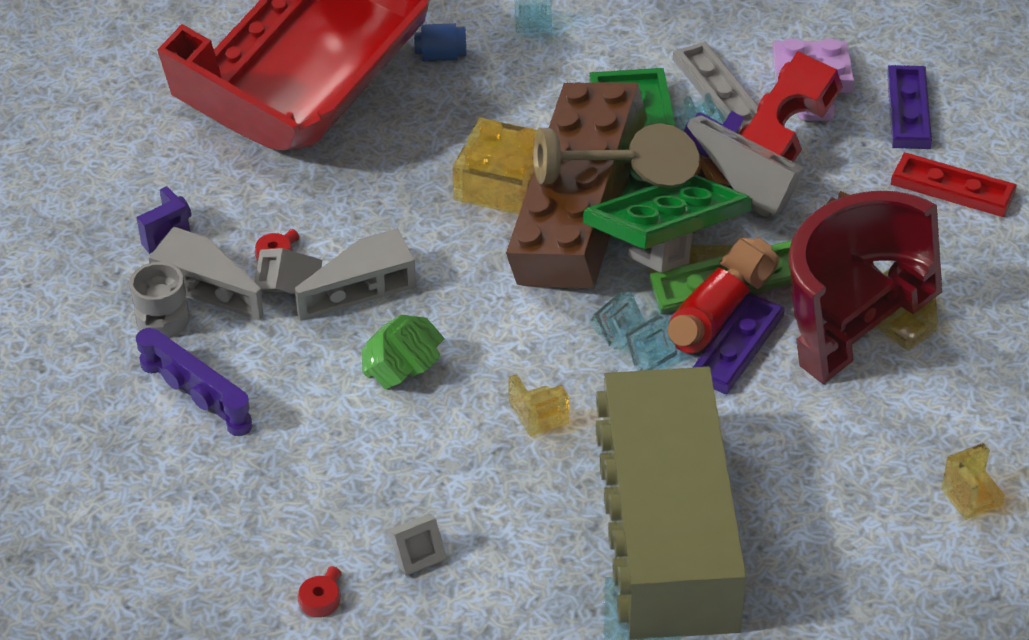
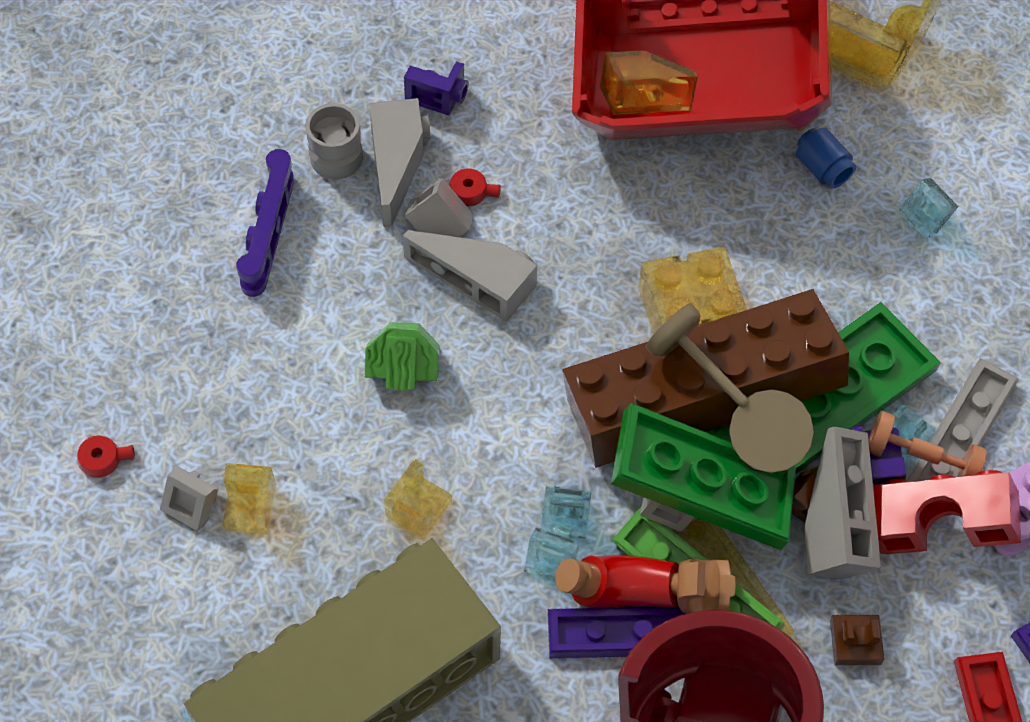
camera: 55 degrees right, 15 degrees up
(297, 86) = (646, 83): none -> clear yellow slope
(453, 502) = (249, 498): none -> clear yellow panel
(756, 86) = (881, 434): none -> nougat wheel

